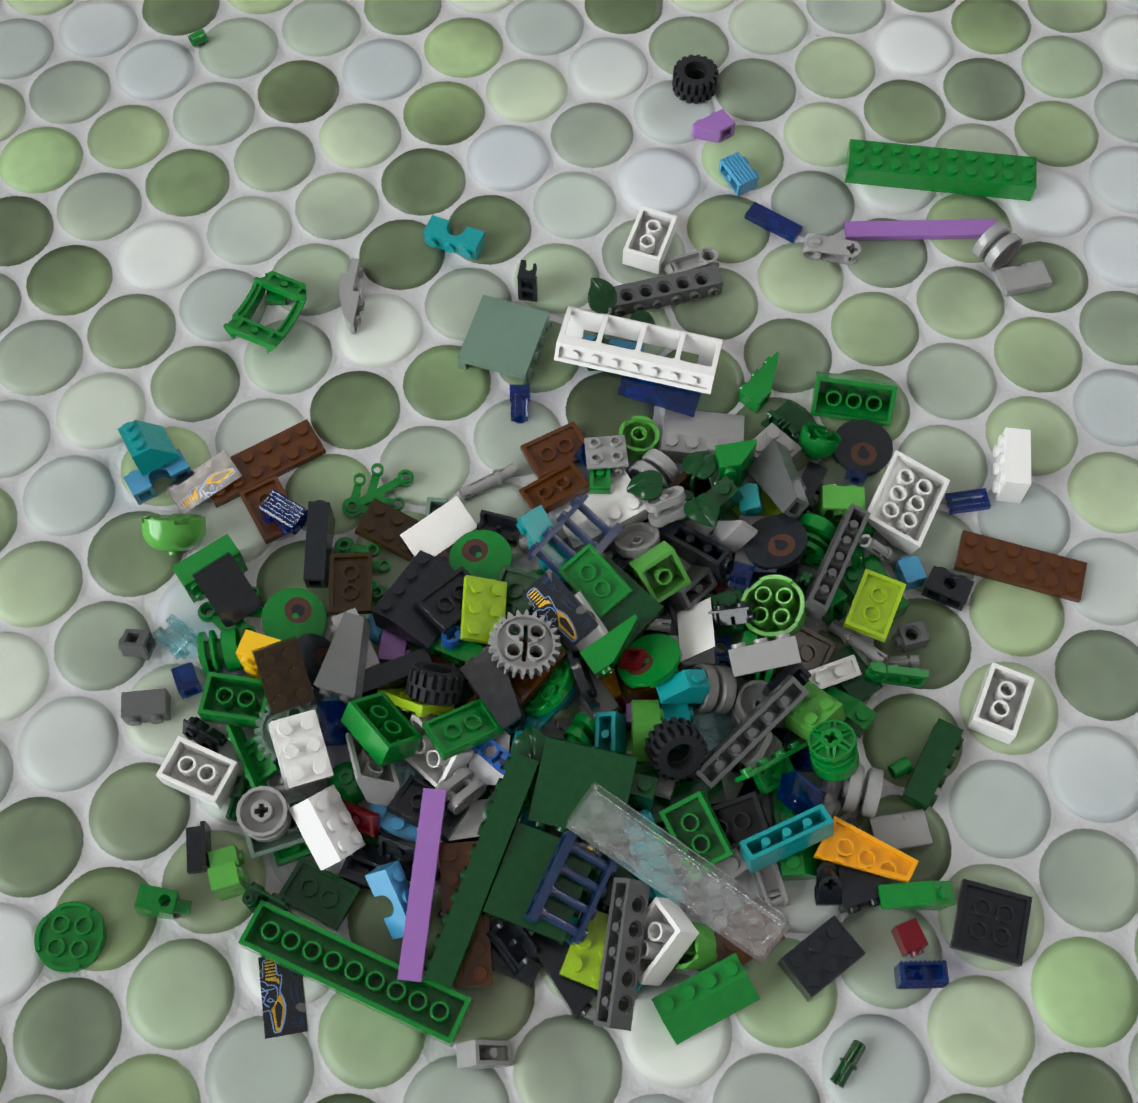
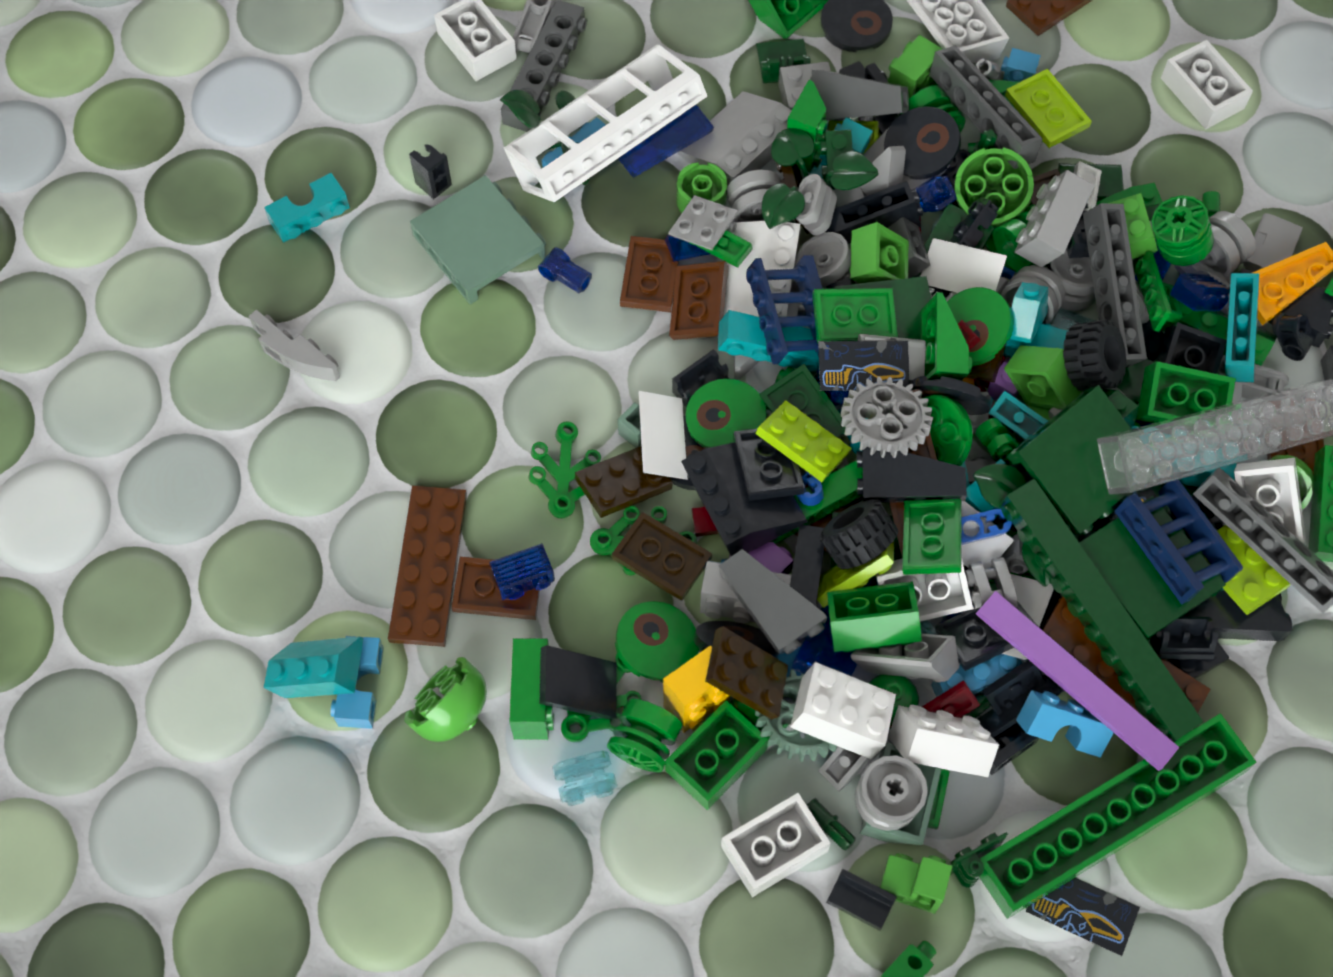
camera: 55 degrees left, 0 degrees up
(137, 643) = (560, 826): dark grey brick -> none
(145, 706) = (648, 860): dark grey brick -> none
(187, 680) = (647, 796): clear blue panel -> none
(196, 729) = (715, 824): black hinge -> none
(203, 481) = (407, 637): sticker -> none
(243, 327) = (255, 470): green wedge -> none
(256, 767) = (799, 777): green bracket -> none
(275, 299) = (219, 424): green tile -> none
(318, 544) = (586, 561): black slope -> none
(319, 893) = (997, 802): dark green plate -> none
(483, 1054) = (1275, 745): light grey slope -> none
(488, 481) = (637, 347): light grey pin -> none
(757, 390) = (726, 55): green slope -> none
(817, 441) = (830, 46): green cylinder -> none
(853, 639) = (1067, 153): light grey pin -> none
(855, 476) = (888, 46): clear blue tile -> none
(896, 675) = (1120, 145): green hinge -> none
(903, 661) = (1102, 138): light grey axle -> none
(915, 629) = (1091, 103): dark grey brick -> none
(932, 764) = (1226, 175): dark green brick -> none
(952, 597) = (1060, 48): black brick -> none

